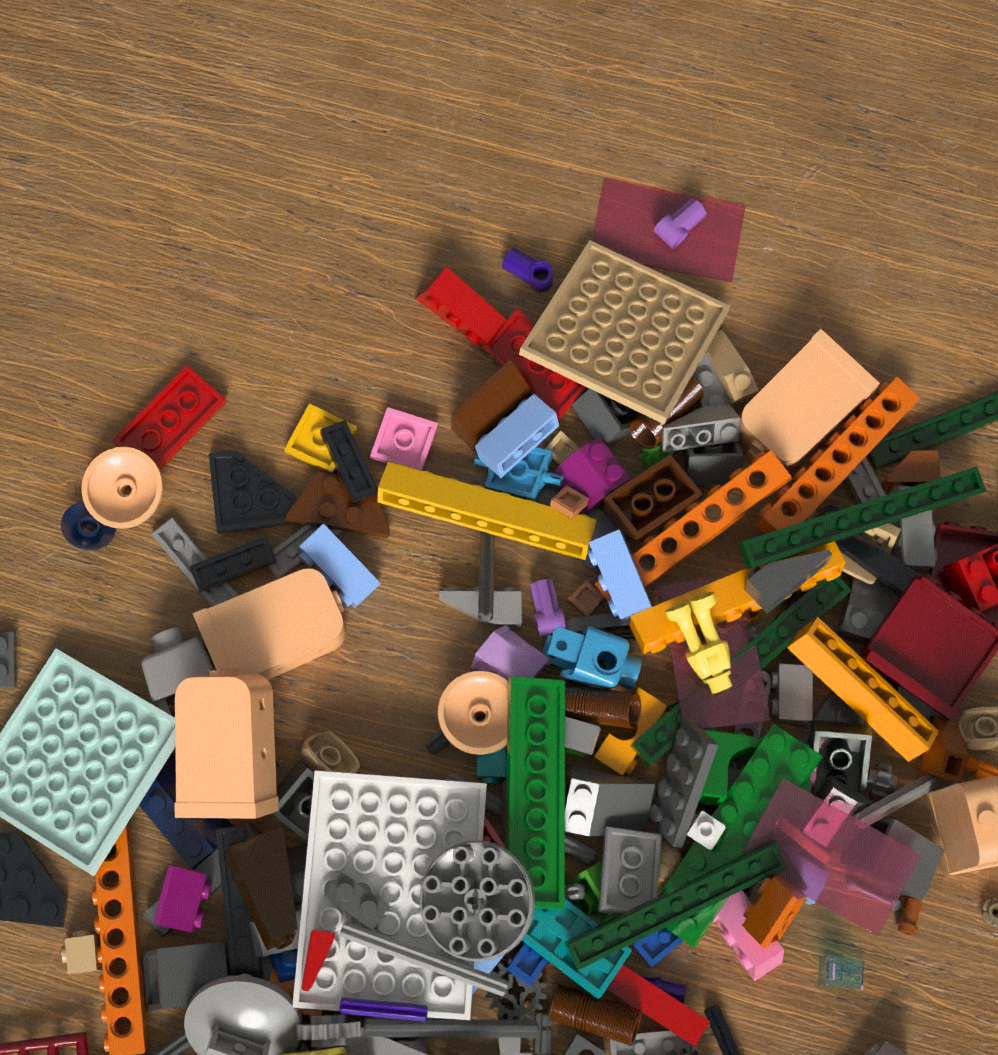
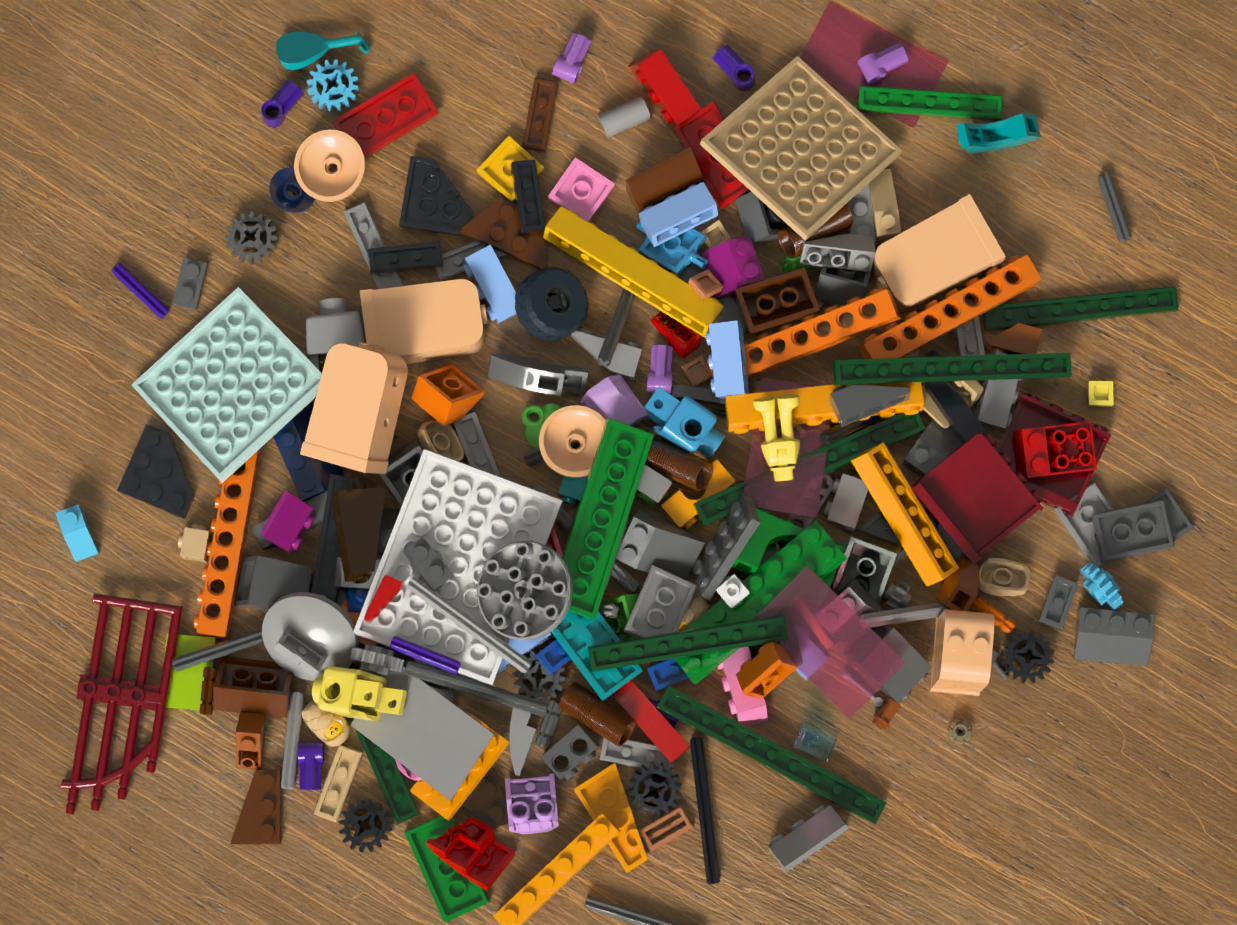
camera: 25 degrees right, 5 degrees up
(51, 434) = (282, 102): none -> dark purple piece
(51, 600) = (244, 244): none -> dark grey gear
(60, 371) = (301, 49): none -> teal piece
(97, 392) = (327, 96): none -> medium azure gear
(321, 701) = (446, 394): none -> orange slope
(336, 373) = (540, 114): none -> reddish brown tile
(353, 311) = (570, 63): none -> medium lavender piece
(369, 747) = (475, 444): none -> light grey plate
(408, 569) = (551, 303): none -> black wheel
(414, 653) = (537, 376): none -> dark grey slope
(426, 351) = (624, 117): none -> light grey brick
(429, 712) = (533, 427): none -> bright green plate
(549, 569) = (682, 345): none -> red slope
(741, 252) = (930, 103): none -> green tile
(801, 1002) = (771, 755): none -> dark green plate
(825, 263) = (998, 135): none -> teal arch
(965, 306) = (1114, 207): none -> dark grey axle

